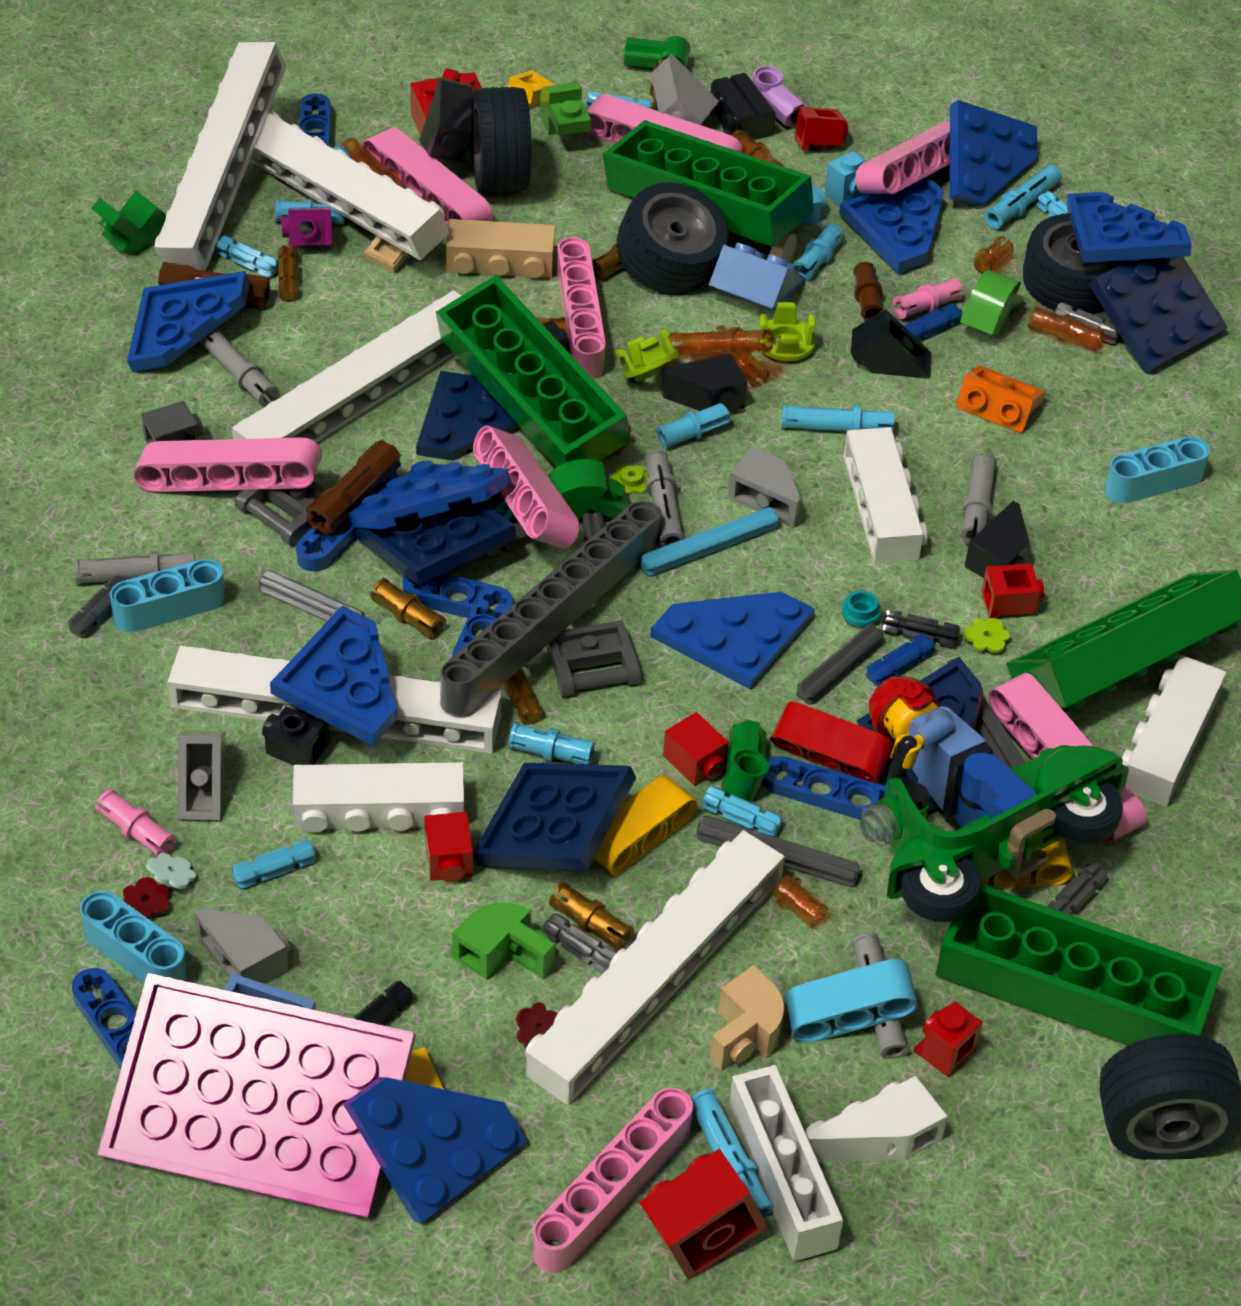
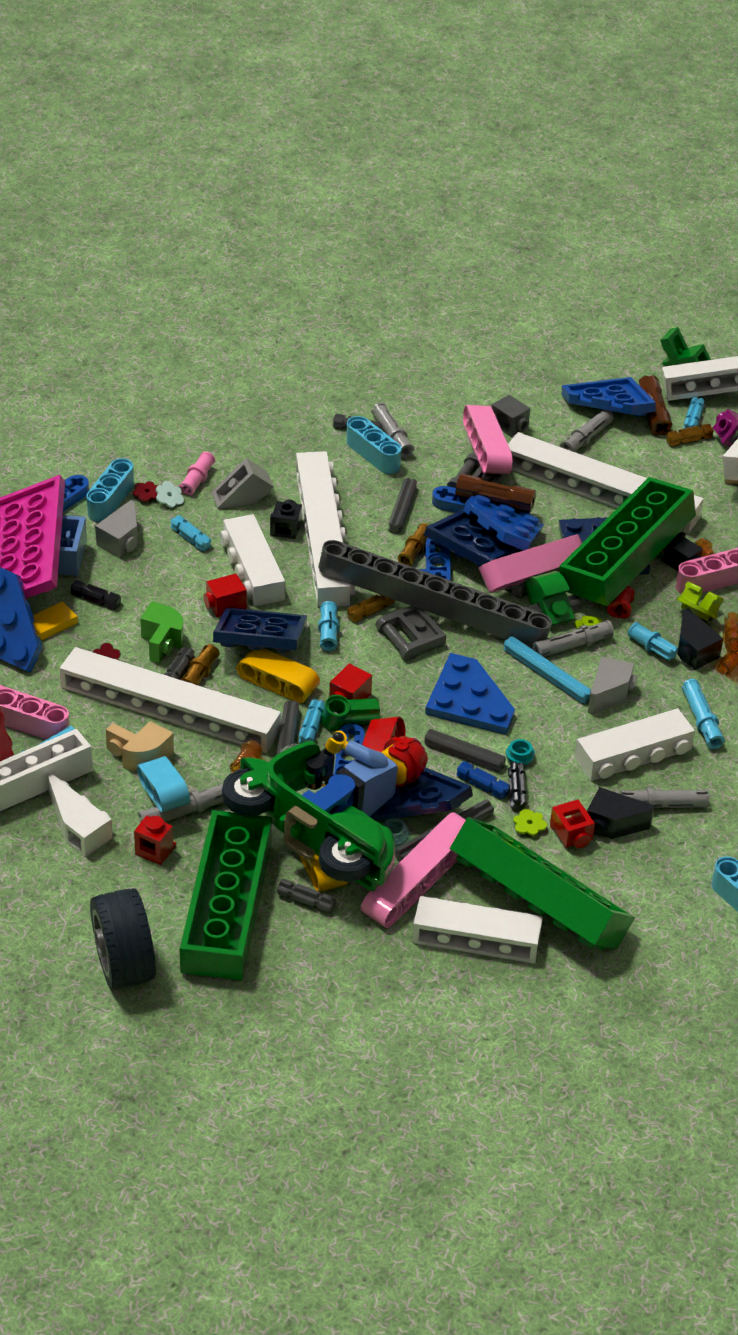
camera: 75 degrees right, 5 degrees down
(342, 678) = (324, 512): blue plate -> none

